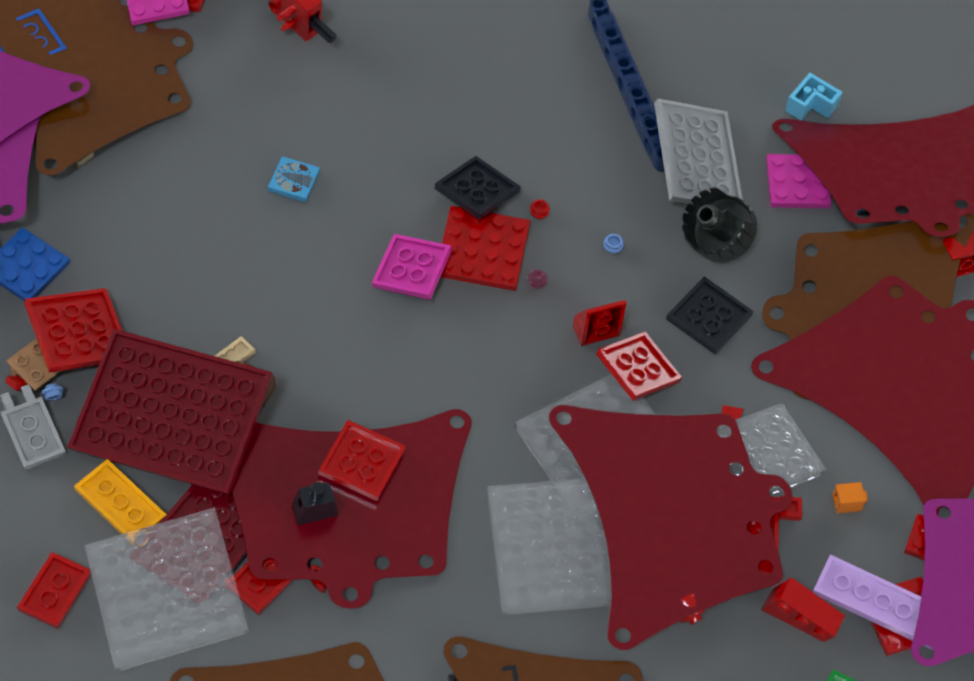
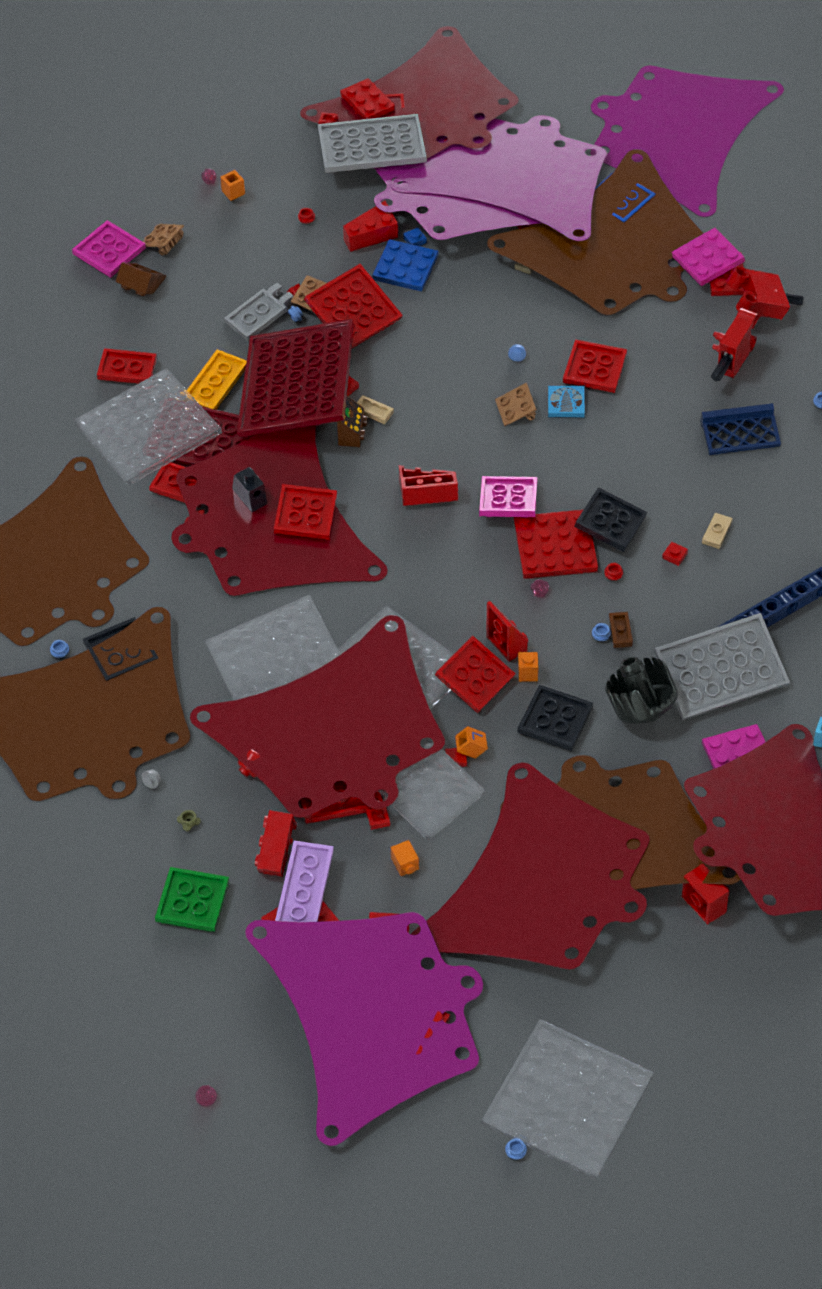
camera: 80 degrees right, 5 degrees down
(209, 199) = (517, 353): none -> medium blue plate
(258, 138) = (595, 366): none -> red plate
(283, 223) = (516, 405): none -> medium nougat hinge
(369, 337) = (427, 486): none -> red wedge
(380, 46) = (738, 417): none -> dark blue fence
(516, 108) = (717, 530): none -> tan plate
(533, 152) = (675, 553): none -> red plate
(615, 224) = (620, 629): none -> reddish brown plate
(641, 317) = (527, 666): none -> orange brick
(725, 394) = (471, 742): none -> orange brick

